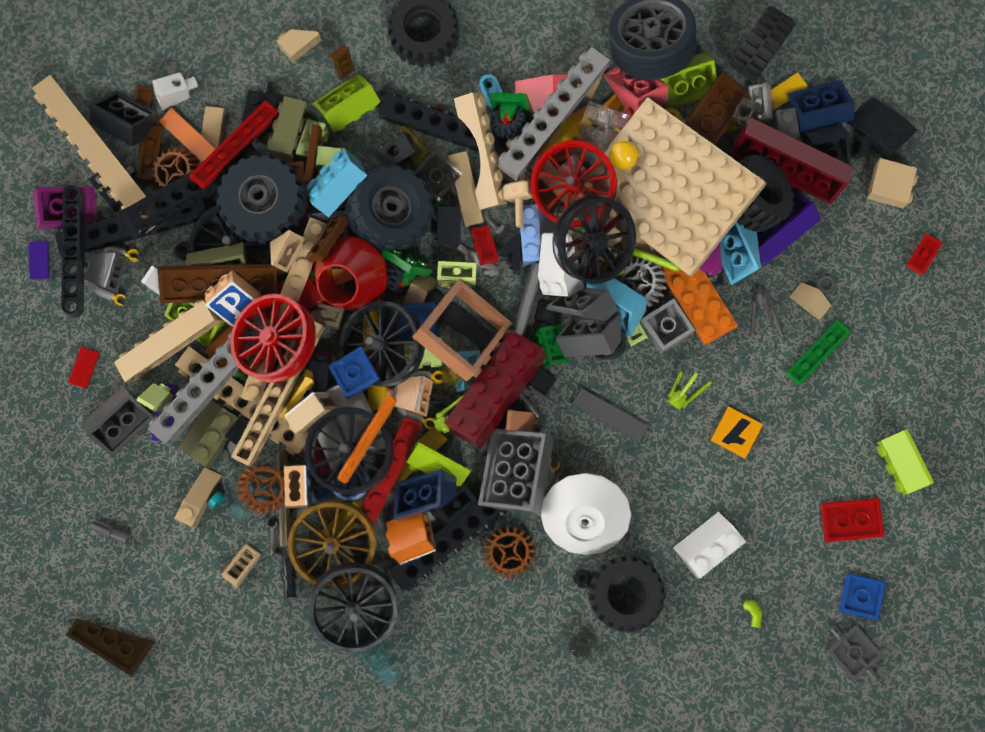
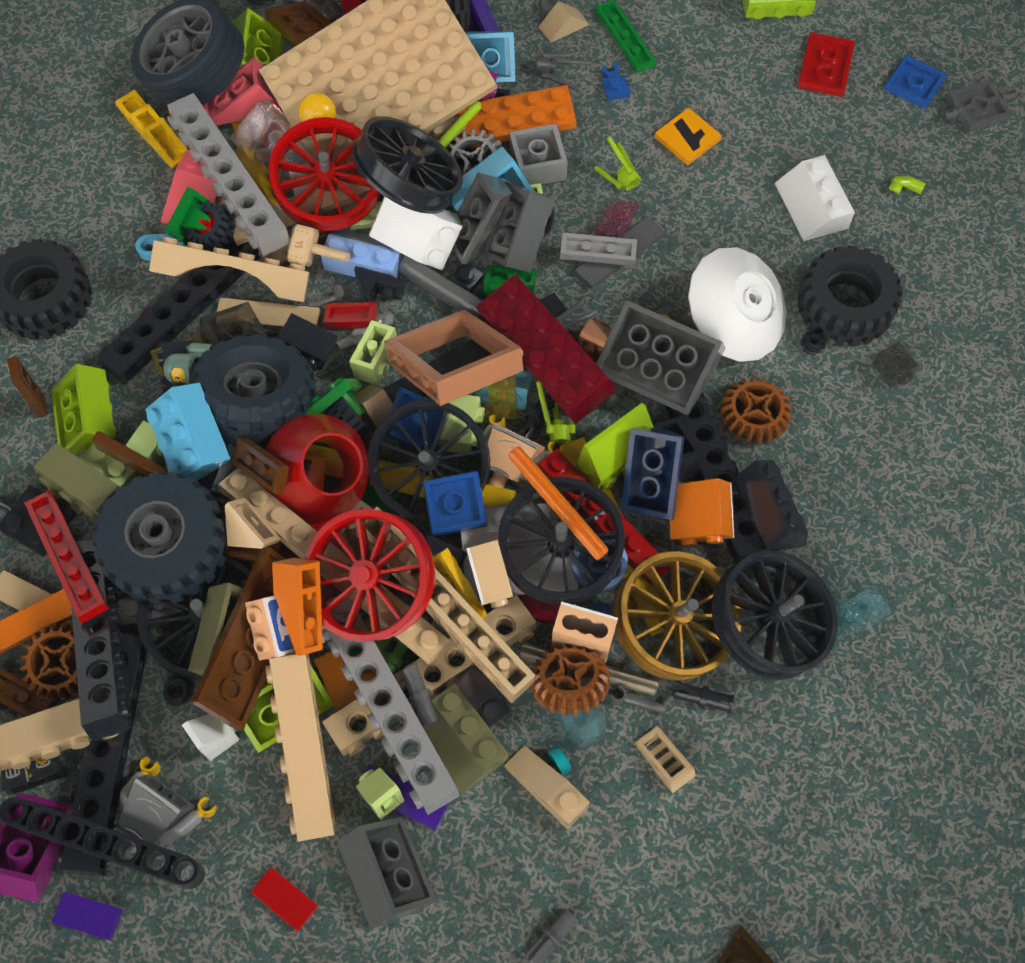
camera: 75 degrees left, 15 degrees down
(221, 399) = (419, 695): none -> dark grey pin
(240, 303) = (299, 600): none -> orange slope
(390, 153) = (179, 366): none -> sand green piece
(432, 584) = (771, 505): none -> black slope
(591, 34) = (152, 128): none -> yellow slope
(600, 399) = (598, 249): none -> light grey plate
(635, 404) = (617, 220): none -> clear pink slope
(763, 361) = (614, 85): none -> blue plate

